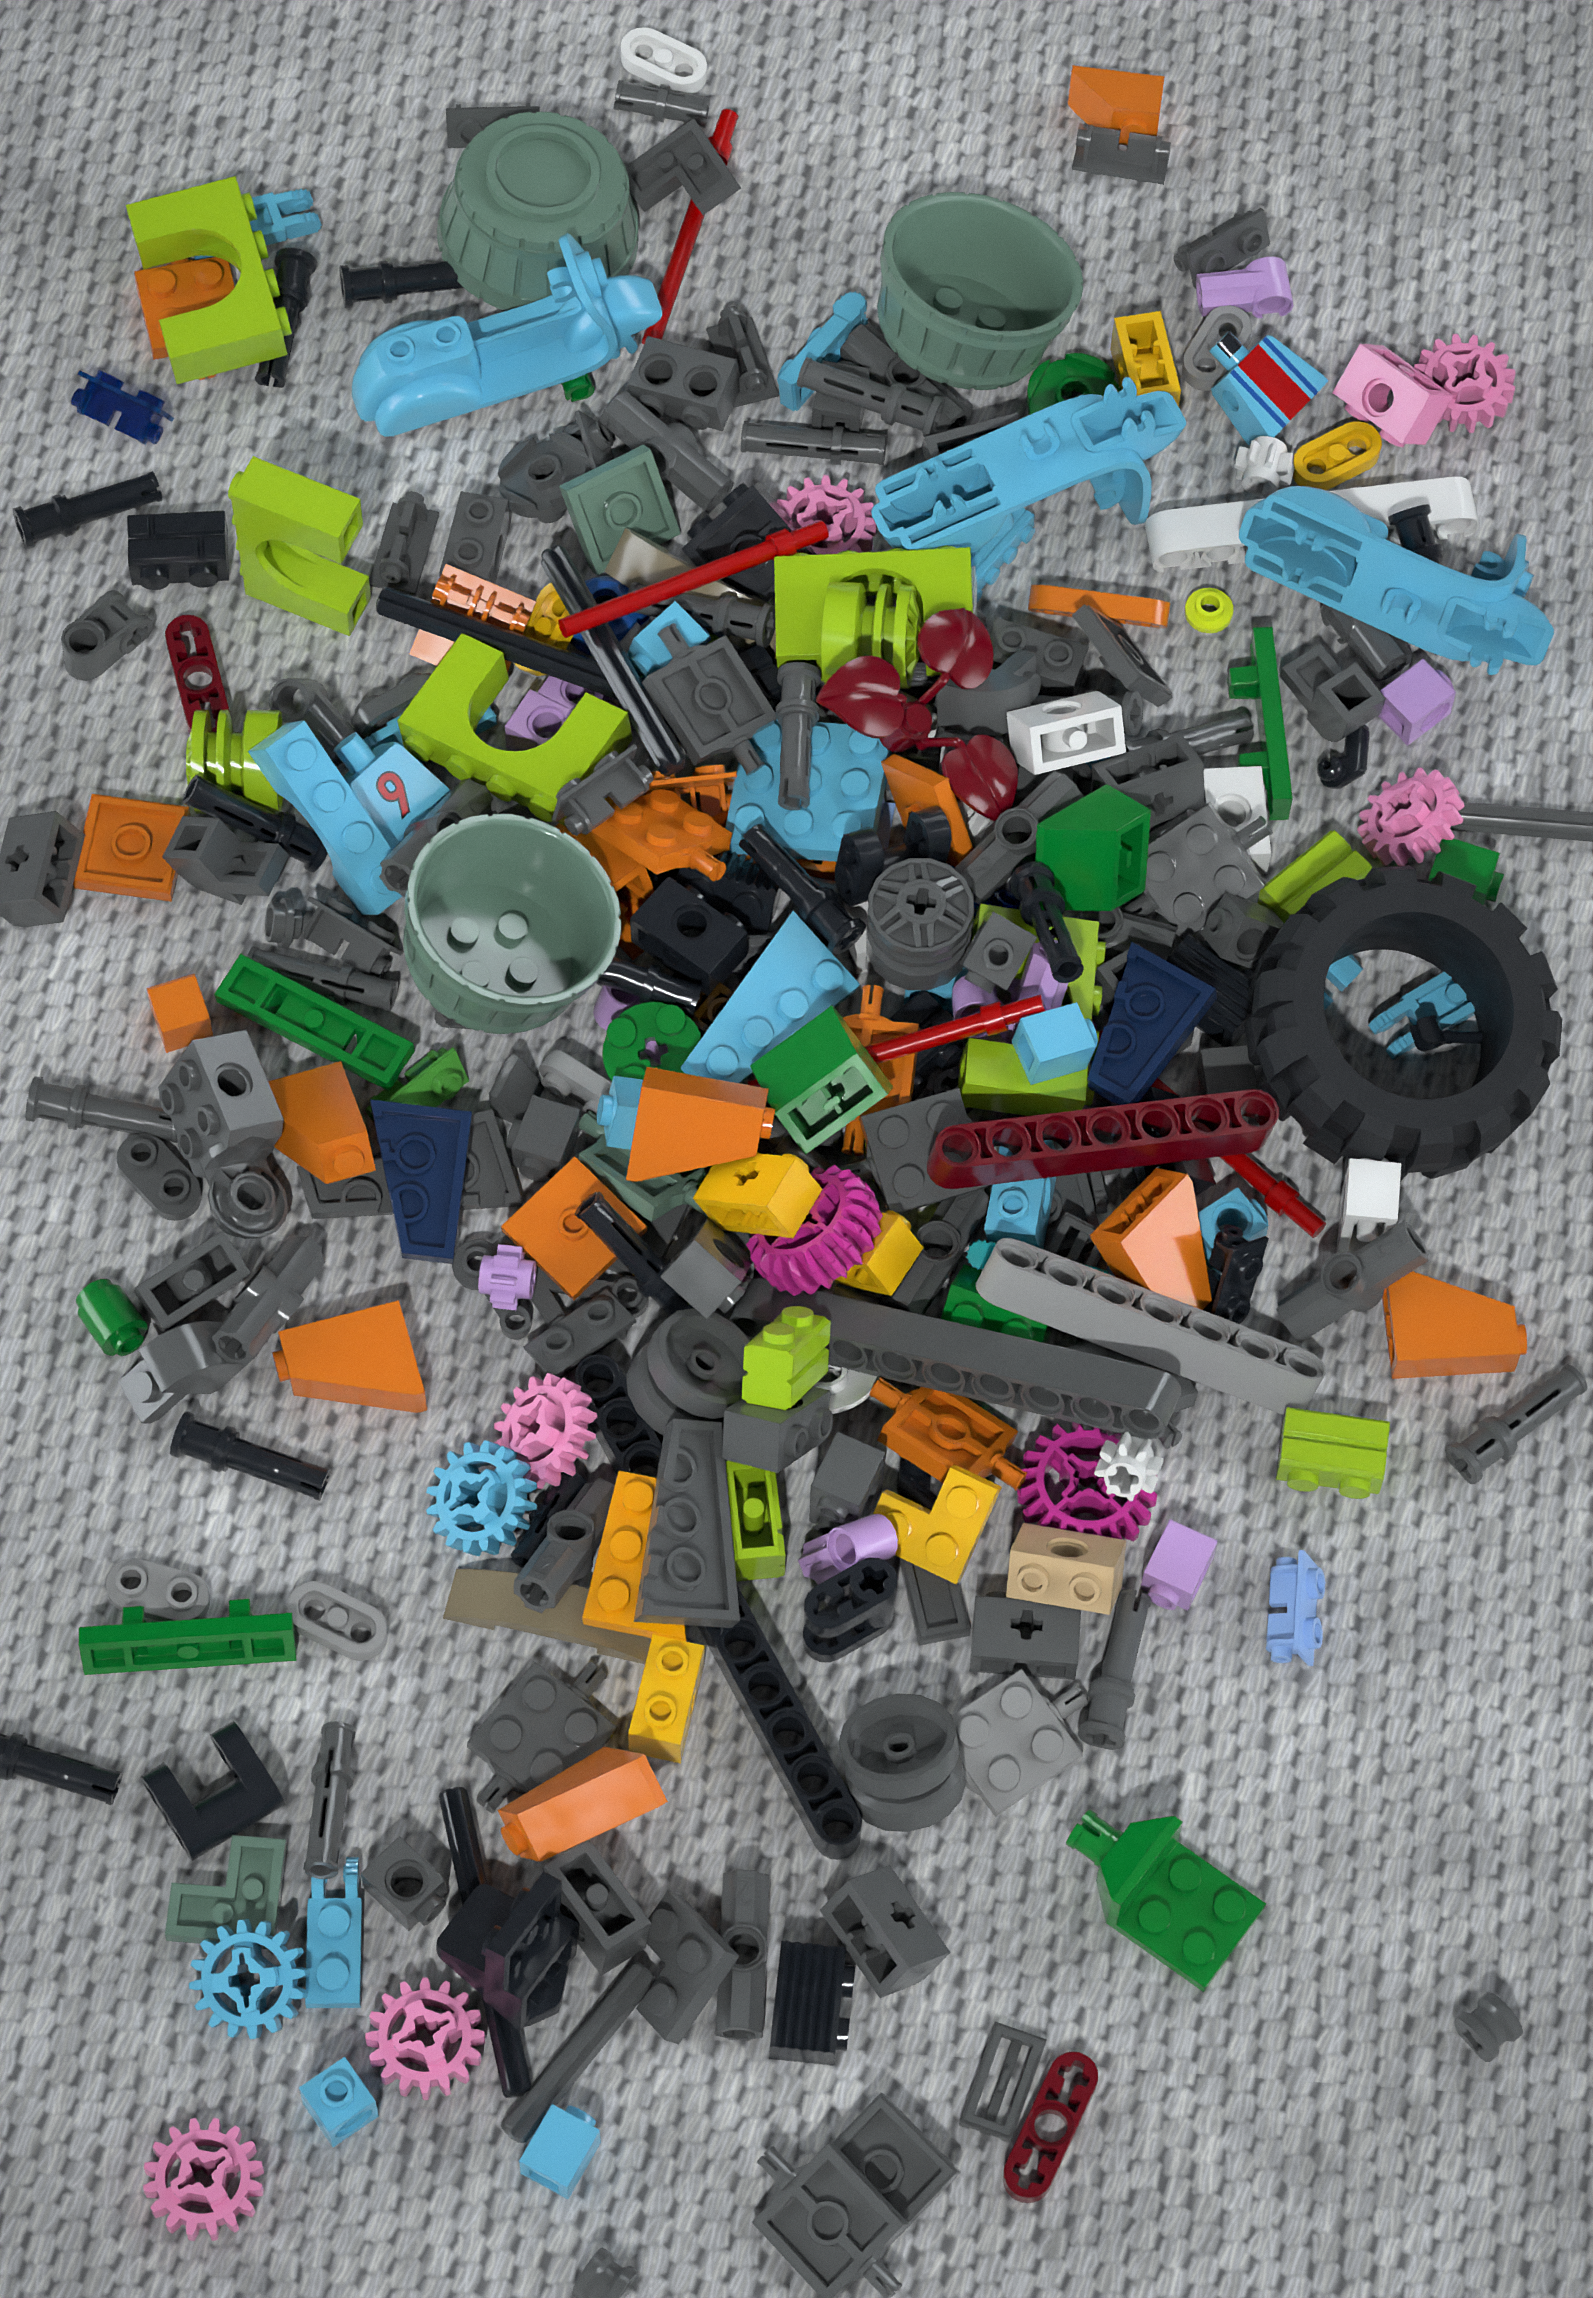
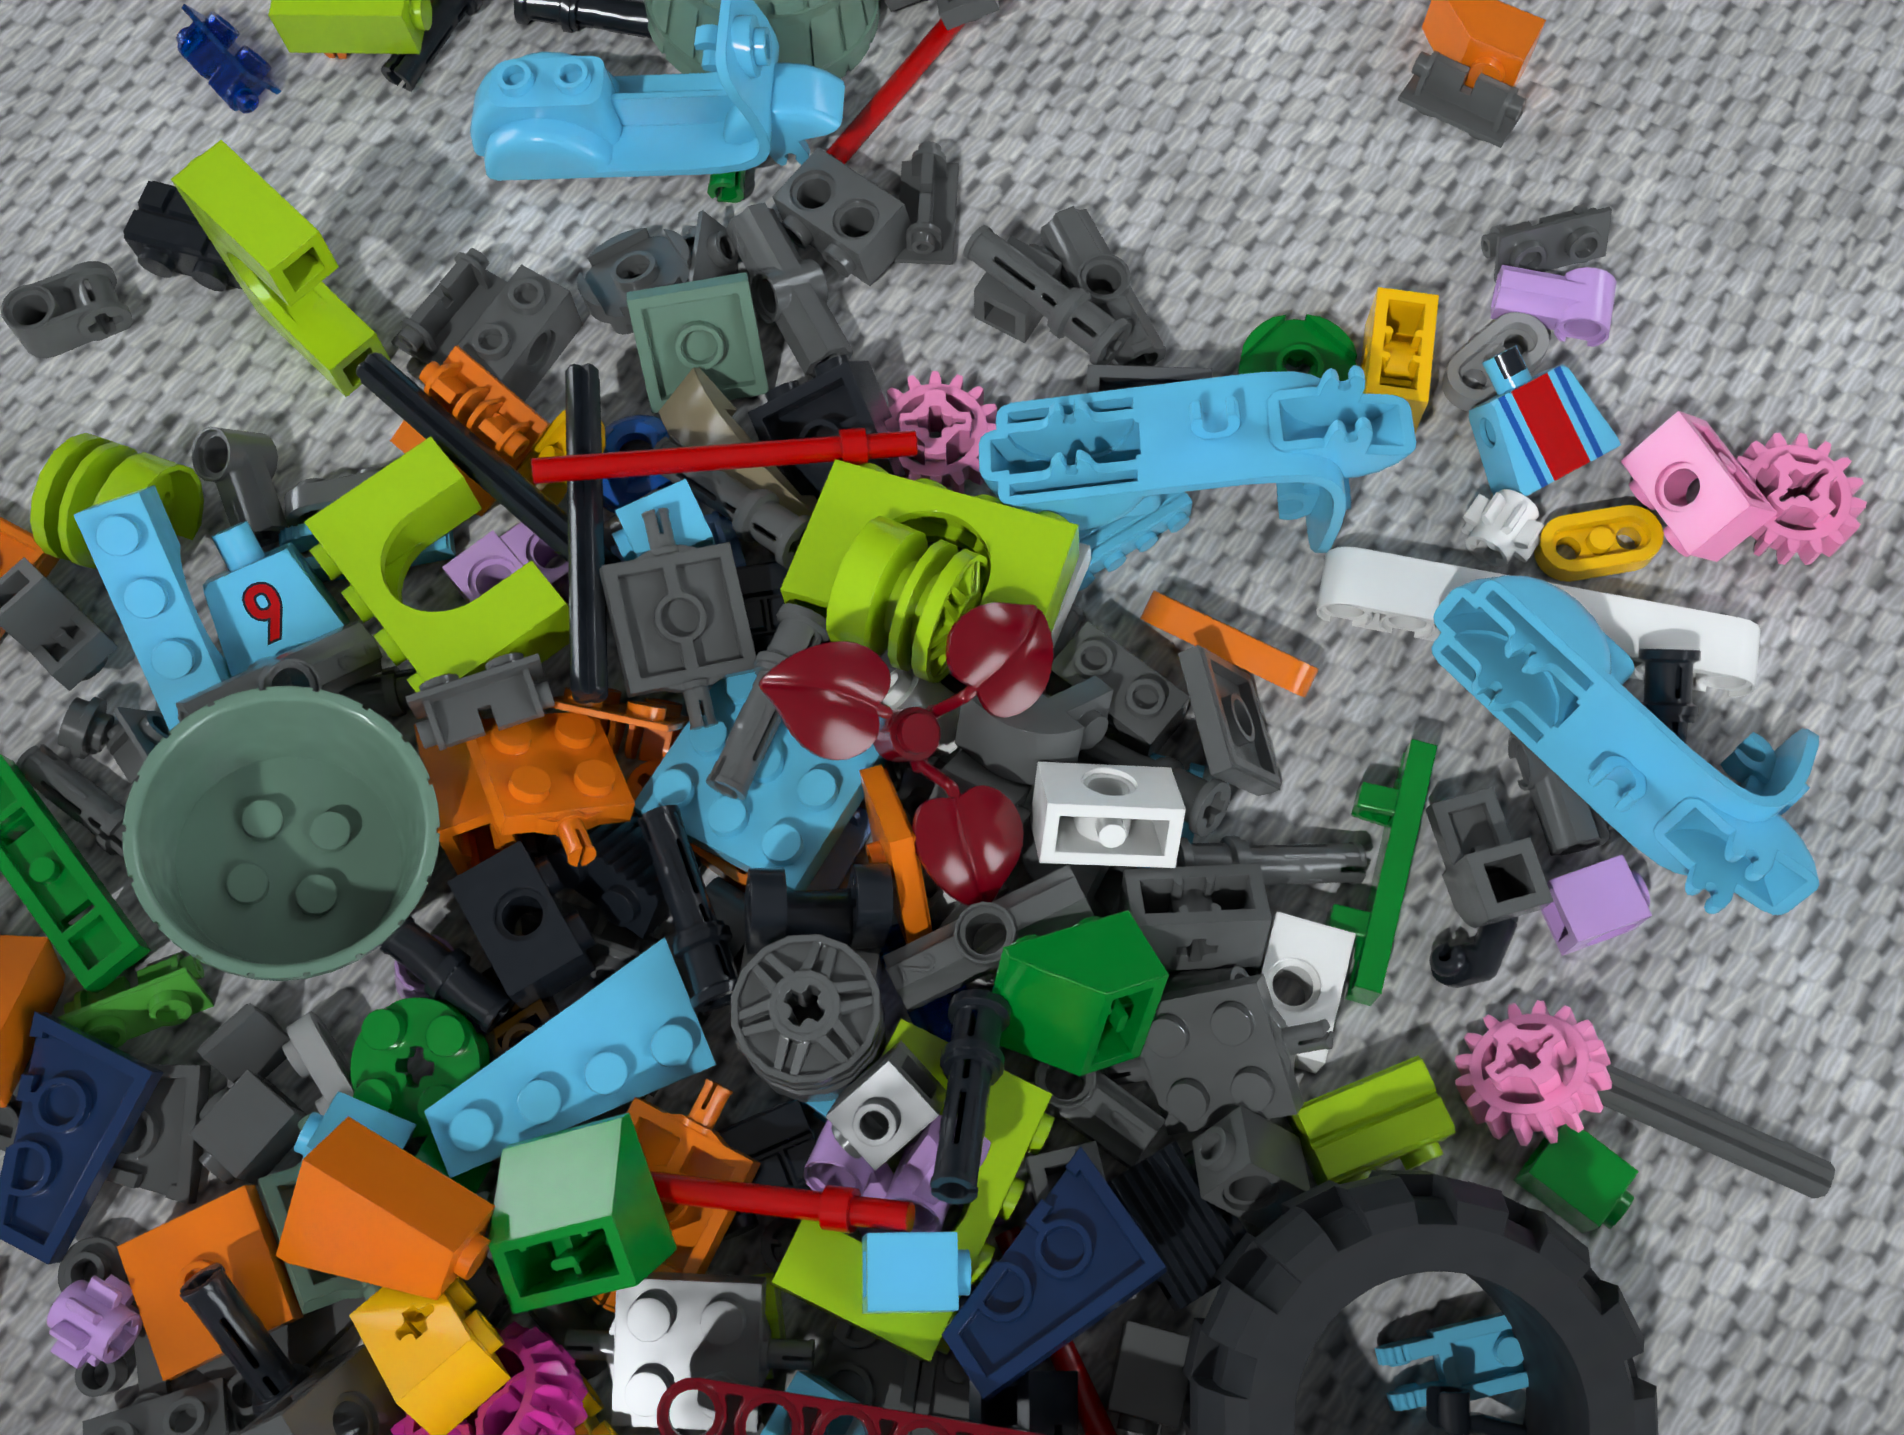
camera: 25 degrees right, 5 degrees up
(65, 514) = (103, 161): black pin -> none
(203, 662) = (143, 372): dark red beam -> none
(281, 828) = (66, 570): black pin -> none
(814, 443) = (987, 340): dark grey pin -> none
(822, 345) = (1025, 218): medium azure hinge -> none
(974, 289) = (1217, 200): sand green piece -> none
(1208, 621) = (1365, 708): neon yellow plate -> none

